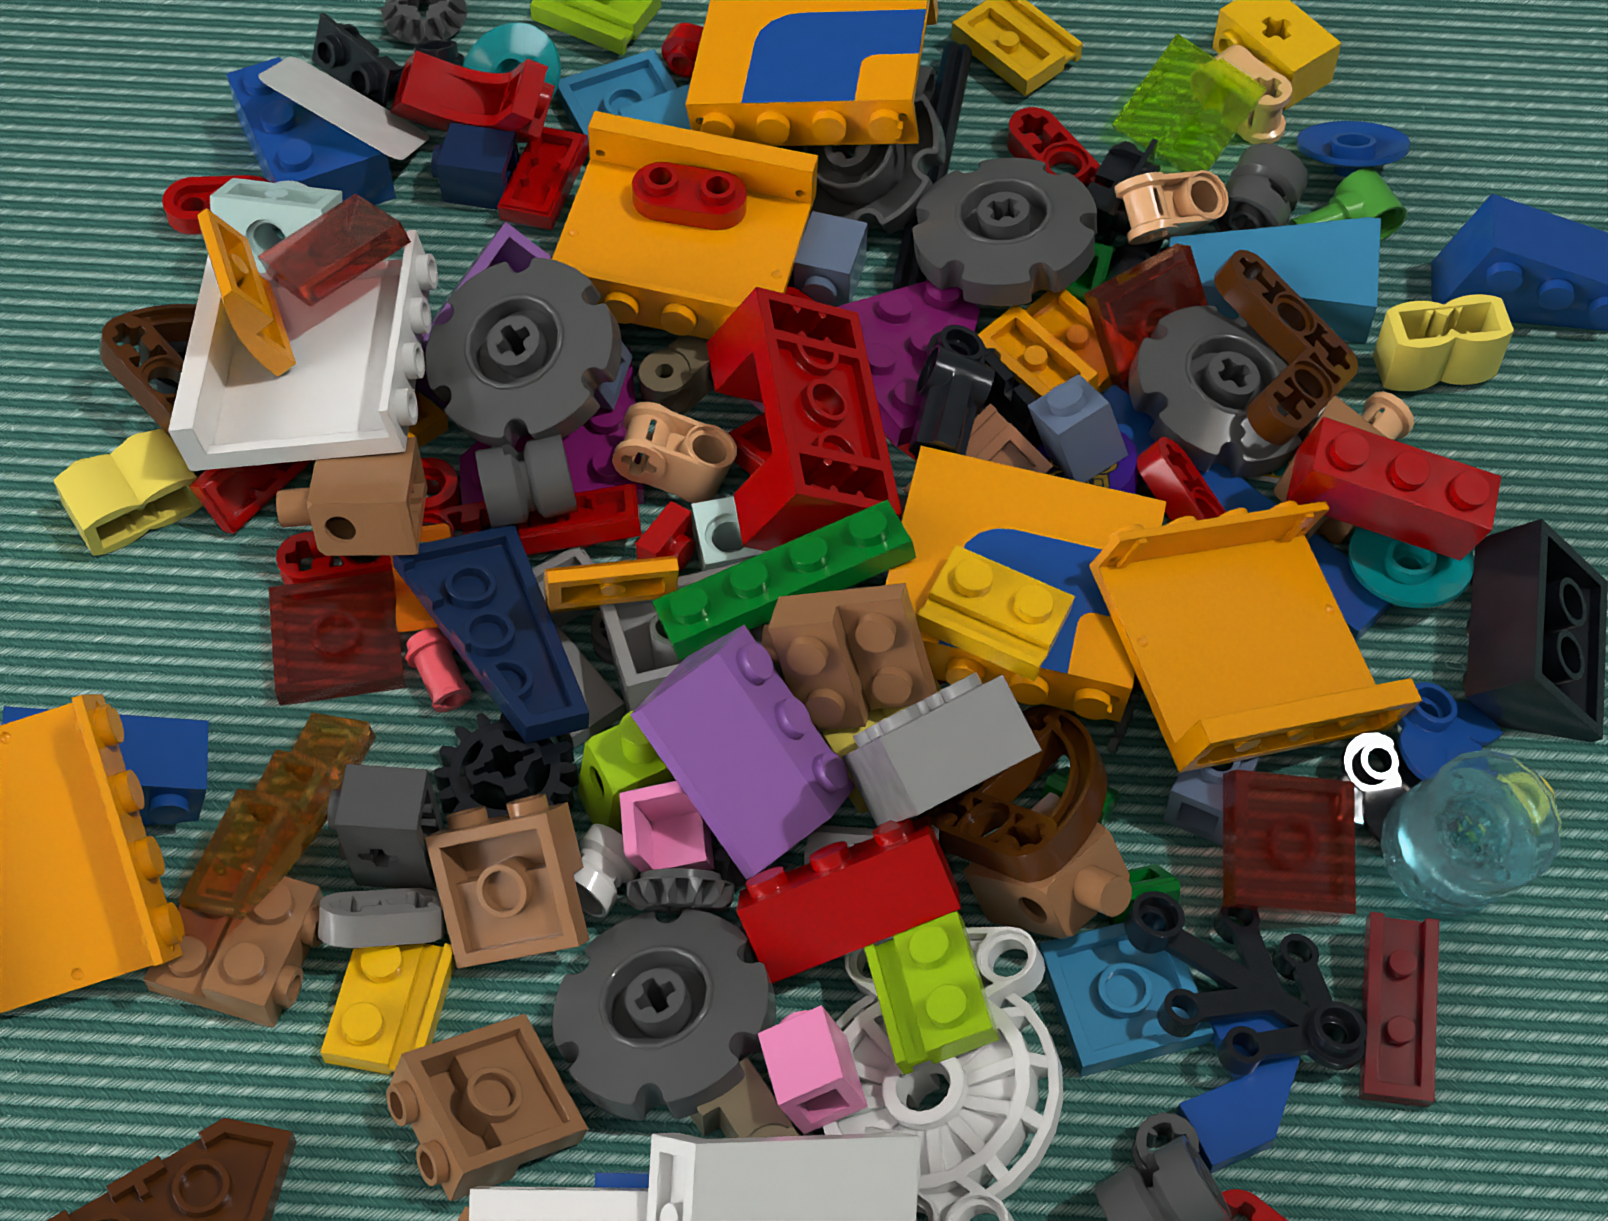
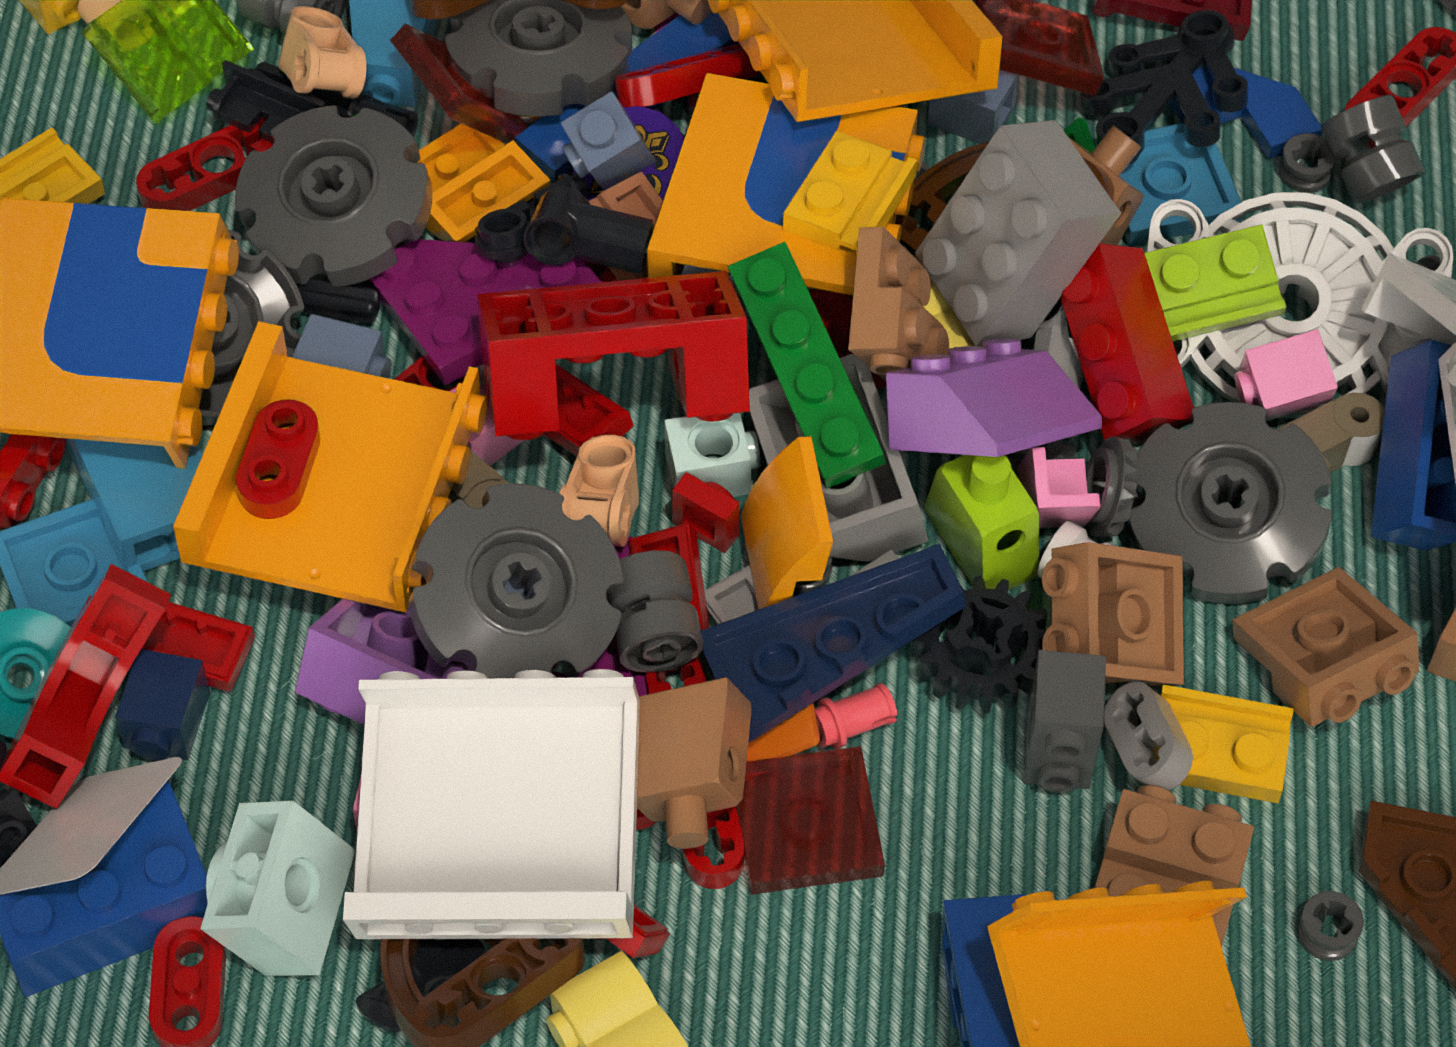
camera: 90 degrees left, 0 degrees up
(167, 1072) = (1309, 926): none -> dark grey bush
(246, 294) = (443, 845): light orange slope -> none
(278, 820) = (1050, 827): clear orange slope -> none
(334, 249) = (365, 775): clear red tile -> none

